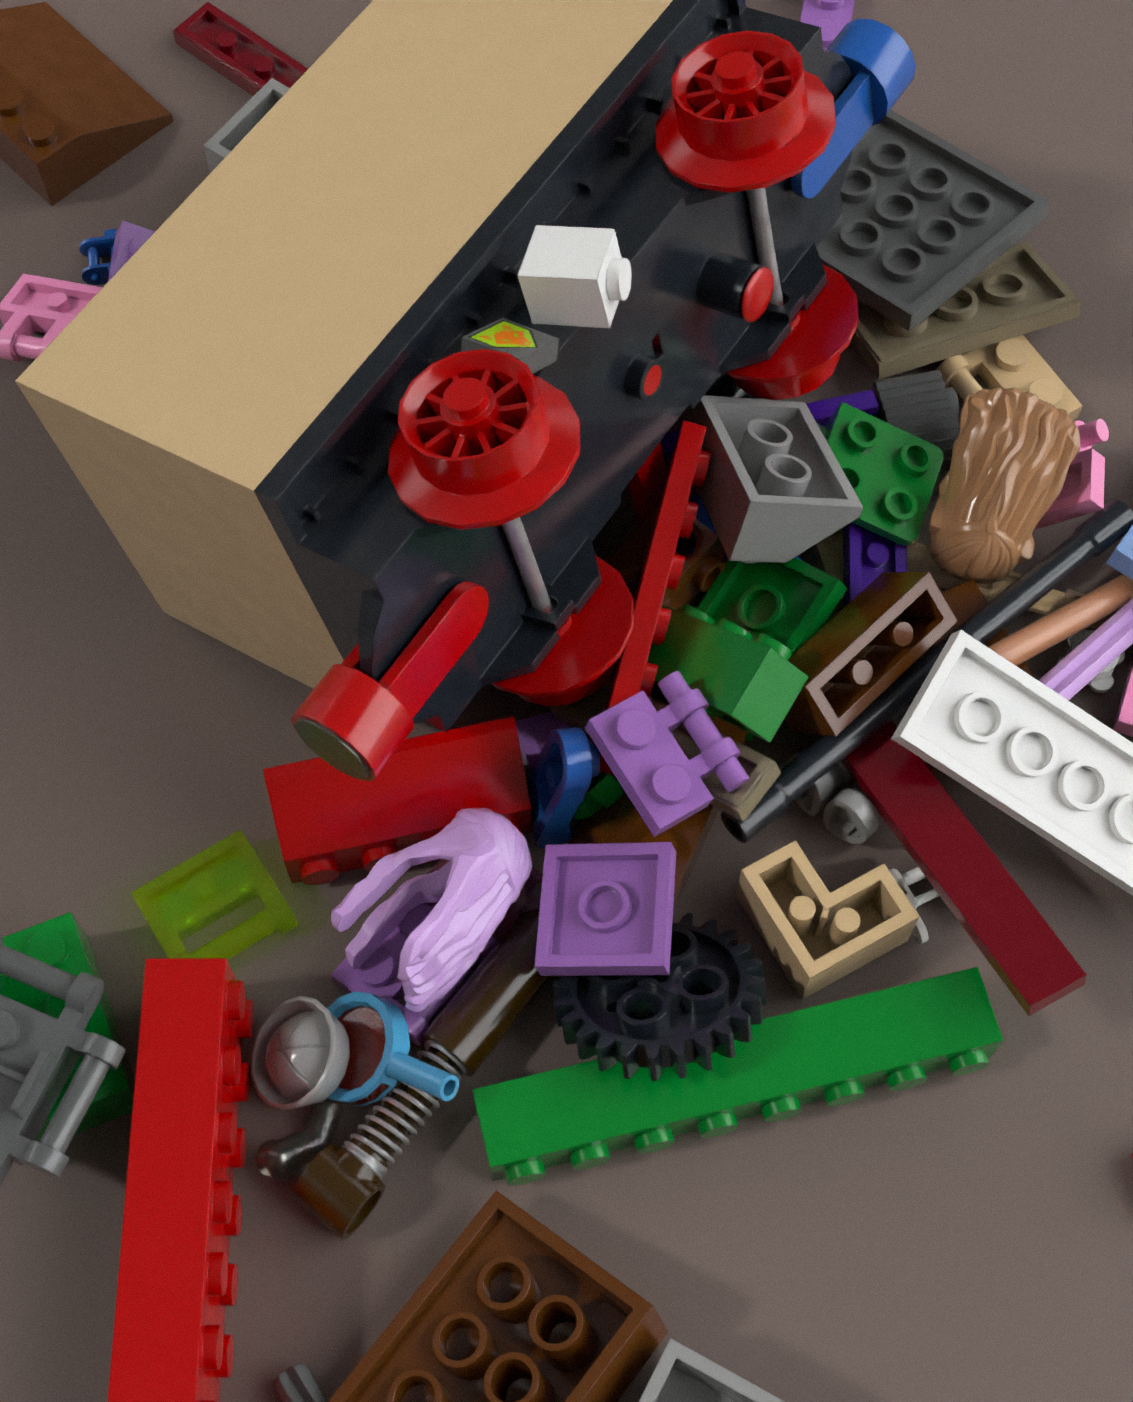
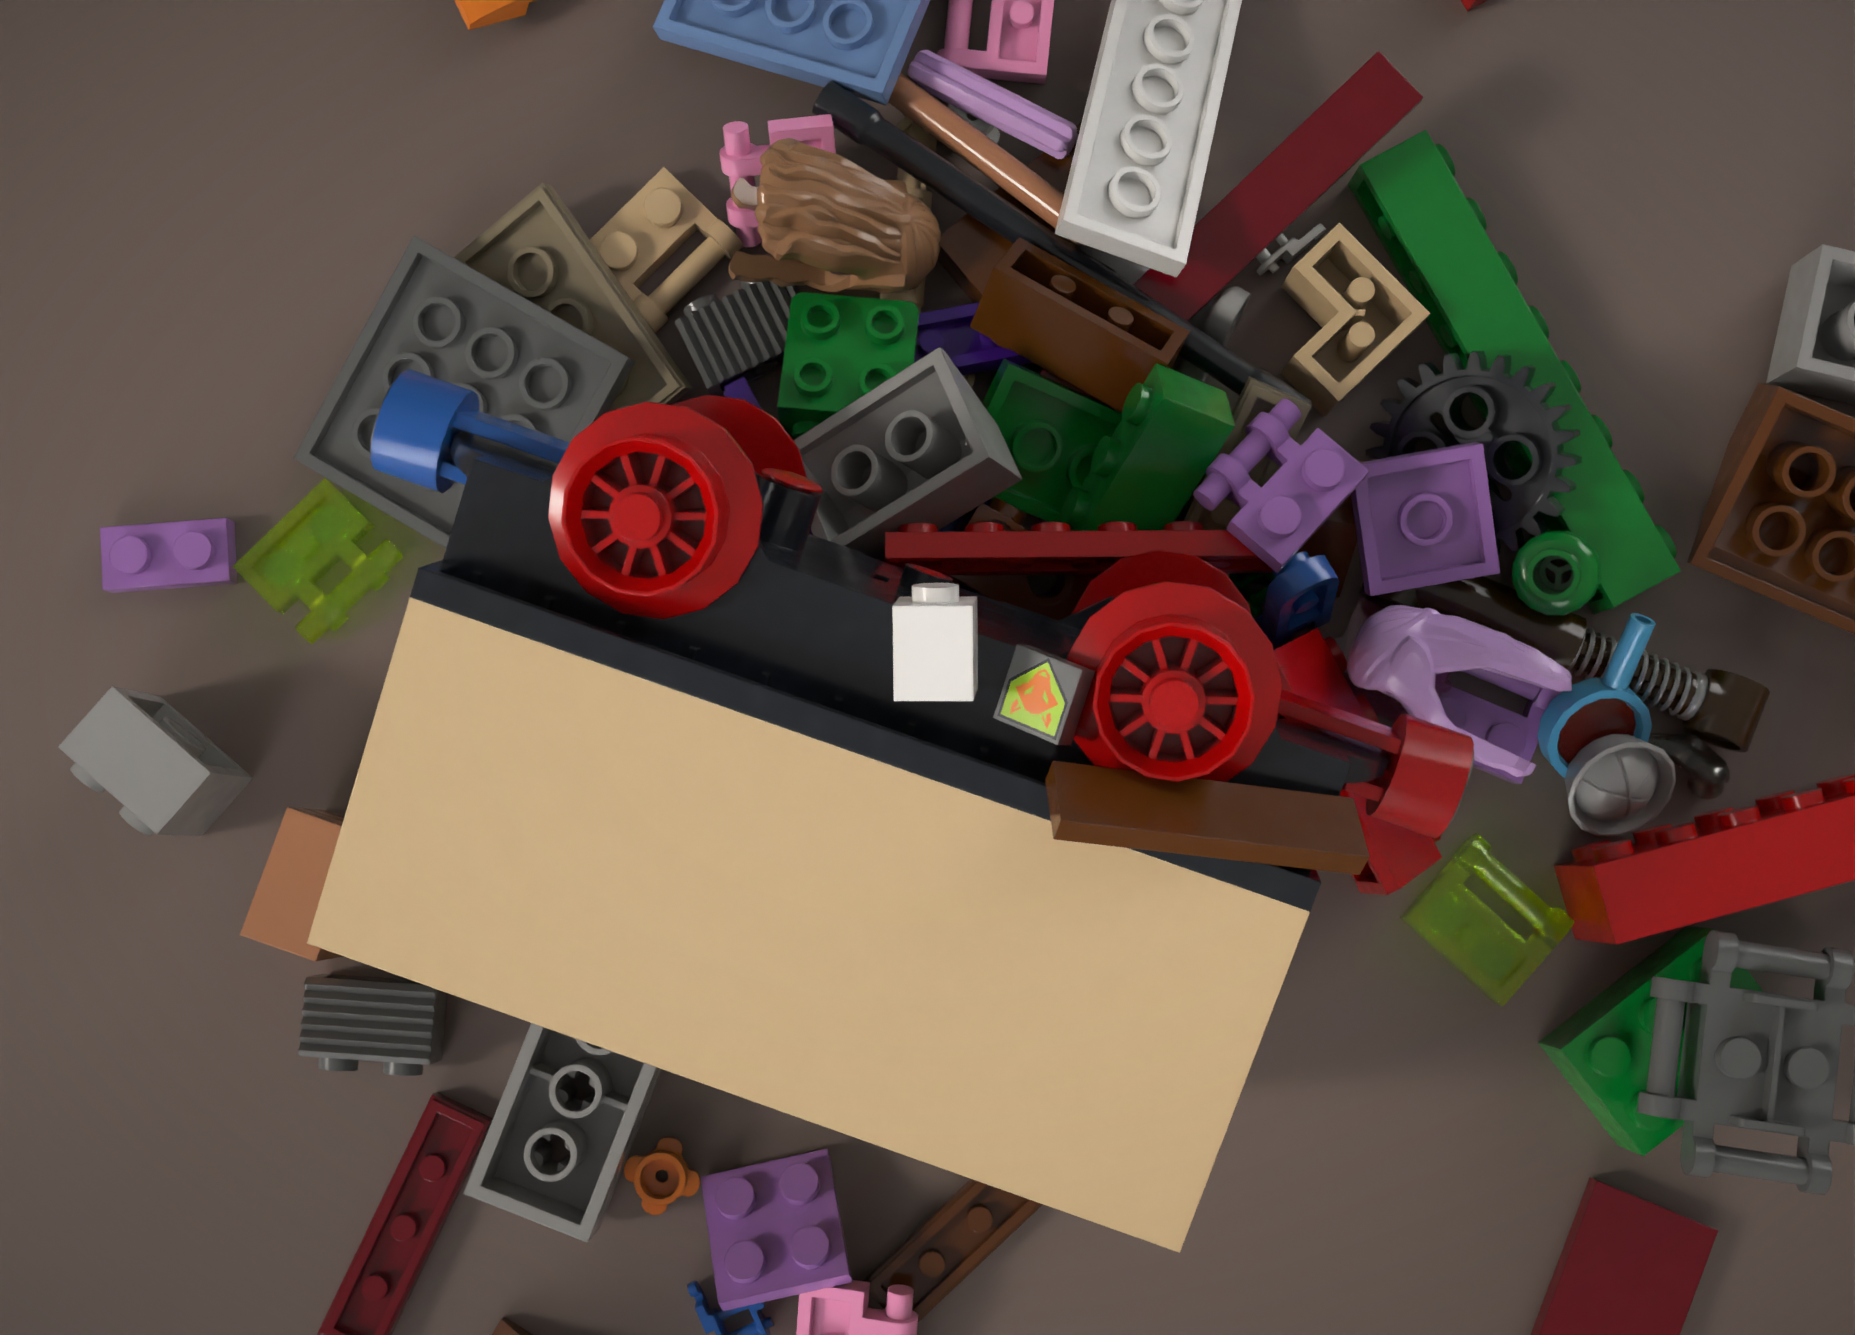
camera: 105 degrees left, 20 degrees up
(359, 428) = (1205, 818): none -> reddish brown tile
(521, 1034) = (1539, 590): none -> green head

